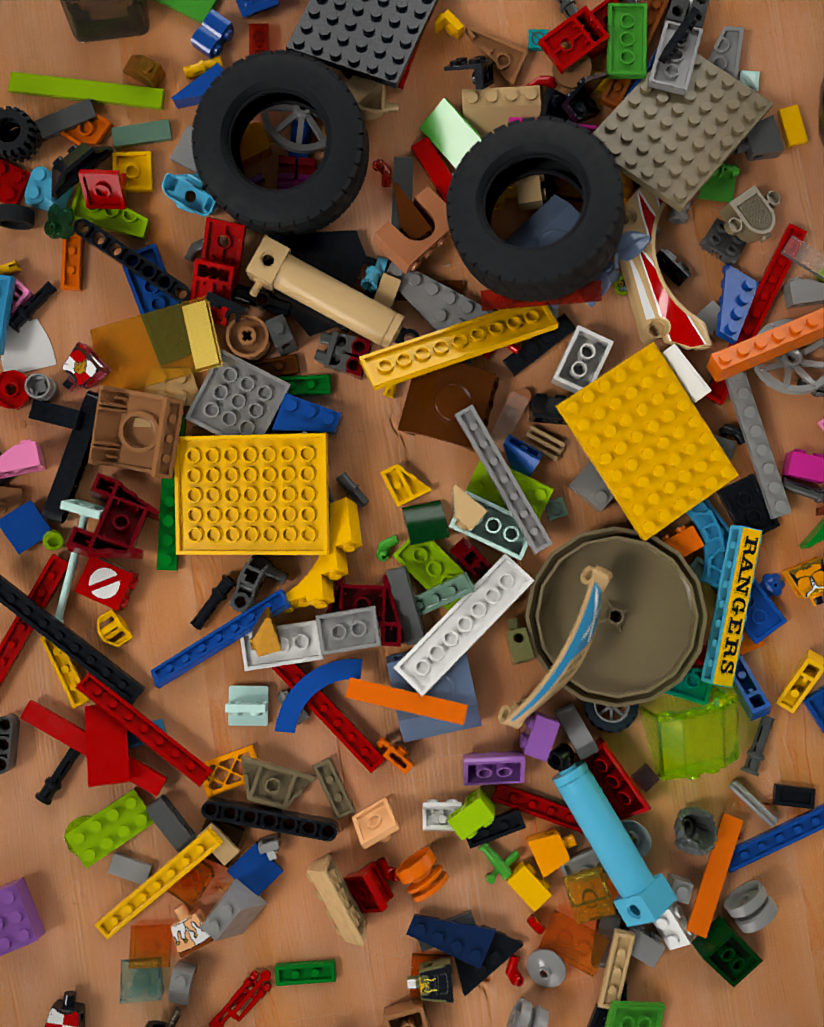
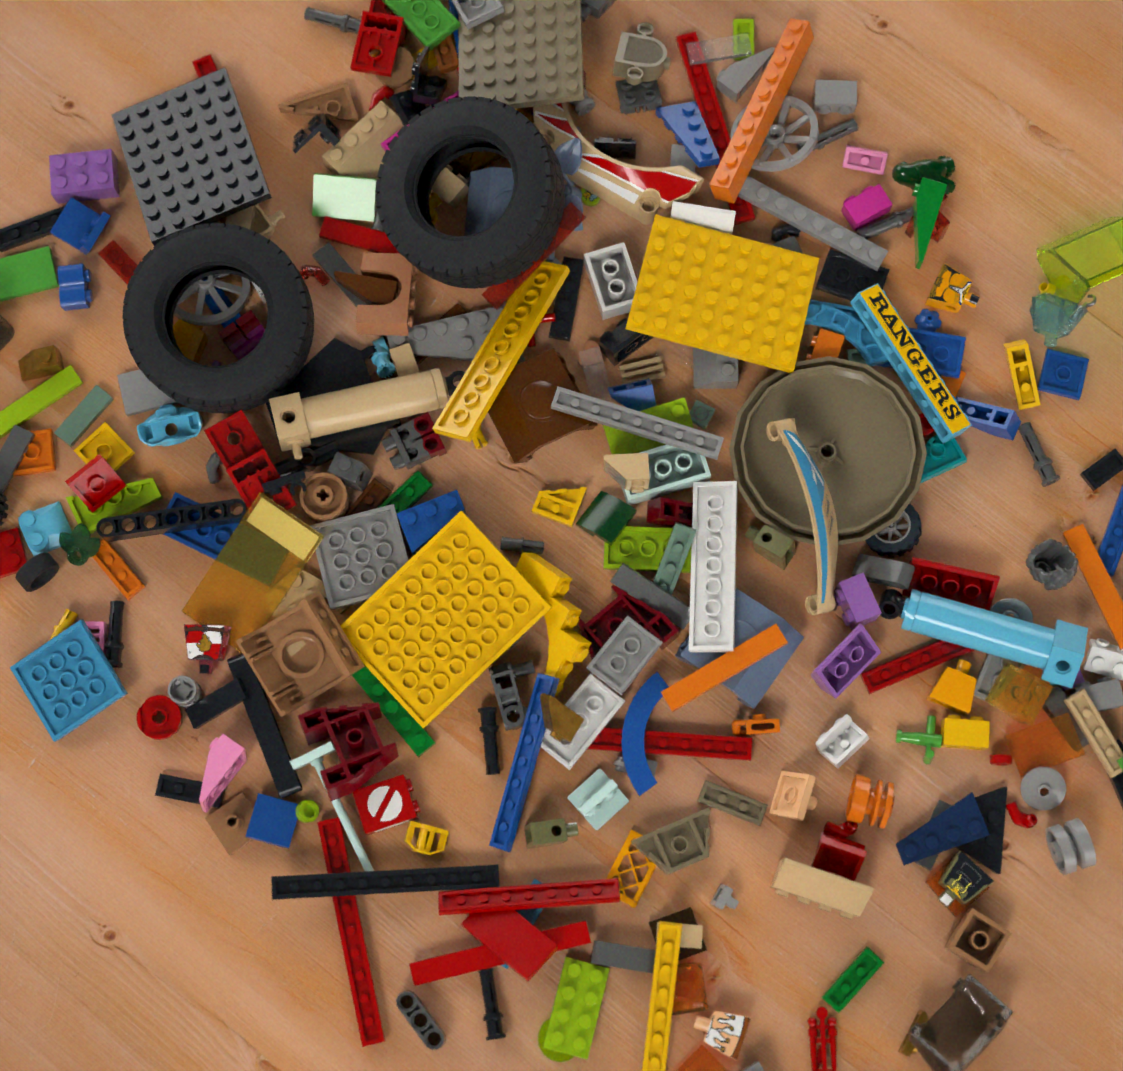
camera: 40 degrees left, 10 degrees down
(27, 349) = (142, 673): white sticker -> none
(66, 671) = (417, 912): yellow tile -> none
(80, 157) = (53, 488): black wedge -> none
(129, 868) = (624, 1030): light grey tile -> none
(187, 696) = (540, 835): none -> olive torso
(195, 90) = (106, 335): blue slope -> none
(201, 67) = (88, 319): yellow pin -> none
(233, 912) = (745, 977): light grey slope -> none
(255, 870) = (731, 932): blue tile -> none
(260, 818) = (714, 872): black beam -> none
(384, 548) = (590, 568): bright green arm -> none
(451, 24) = (265, 114): yellow bracket -> none
(473, 814) = (864, 713): lime brick -> none
(503, 824) = (892, 712): black plate -> none
(533, 38) = (343, 69): teal tile -> none
(645, 777) = (975, 560): plate -> none
(681, 887) = (1087, 619): light grey brick -> none
(697, 739) = (976, 489): clear neon green windscreen -> none
(721, 184) = (595, 53): bright green hinge -> none
(753, 803) = (1064, 503): light grey axle -> none

